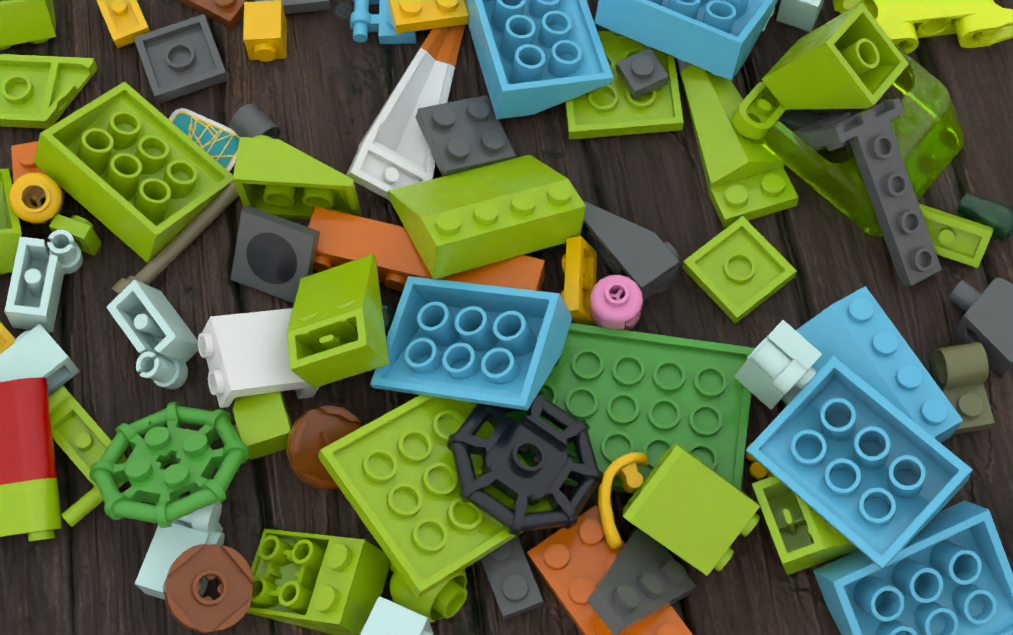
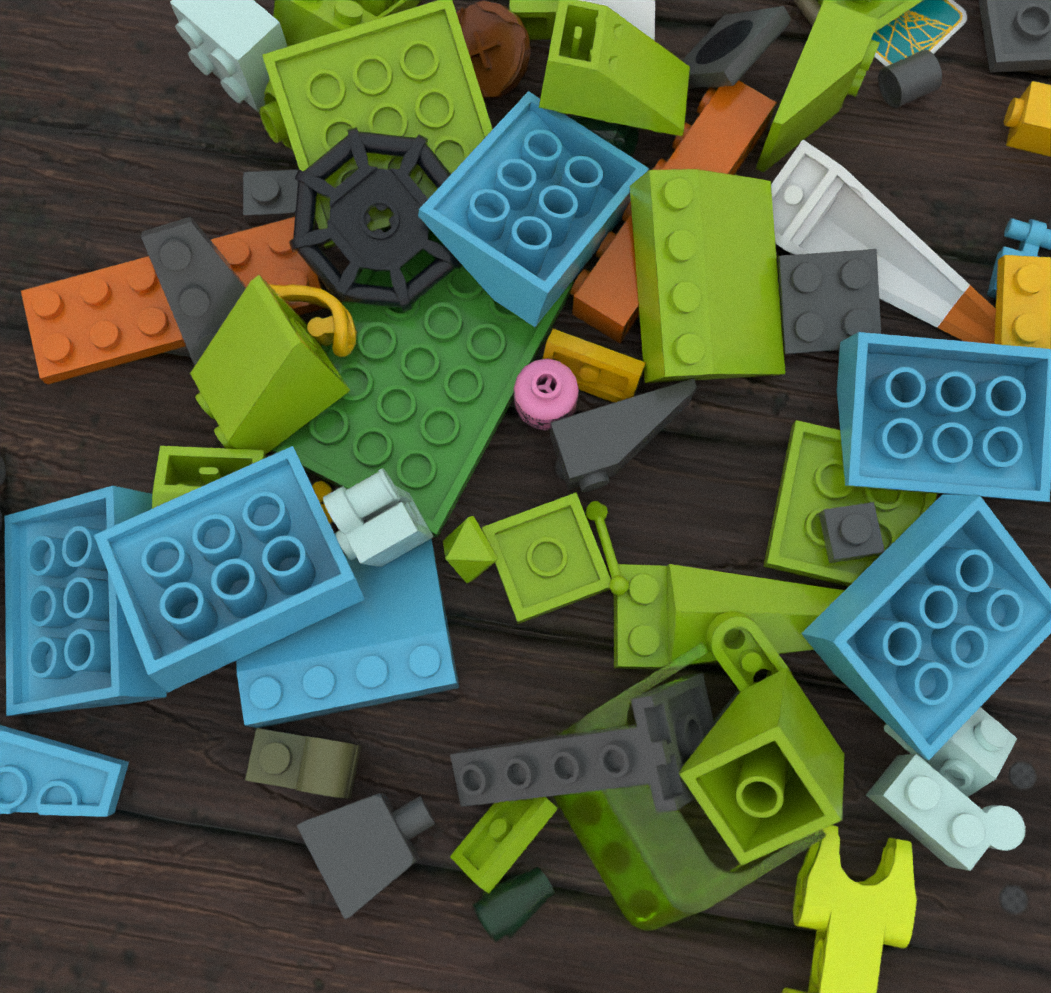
camera: 105 degrees right, 10 degrees up
(688, 248) = (598, 512): none -> lime hinge
(755, 322) = (469, 550): none -> lime slope

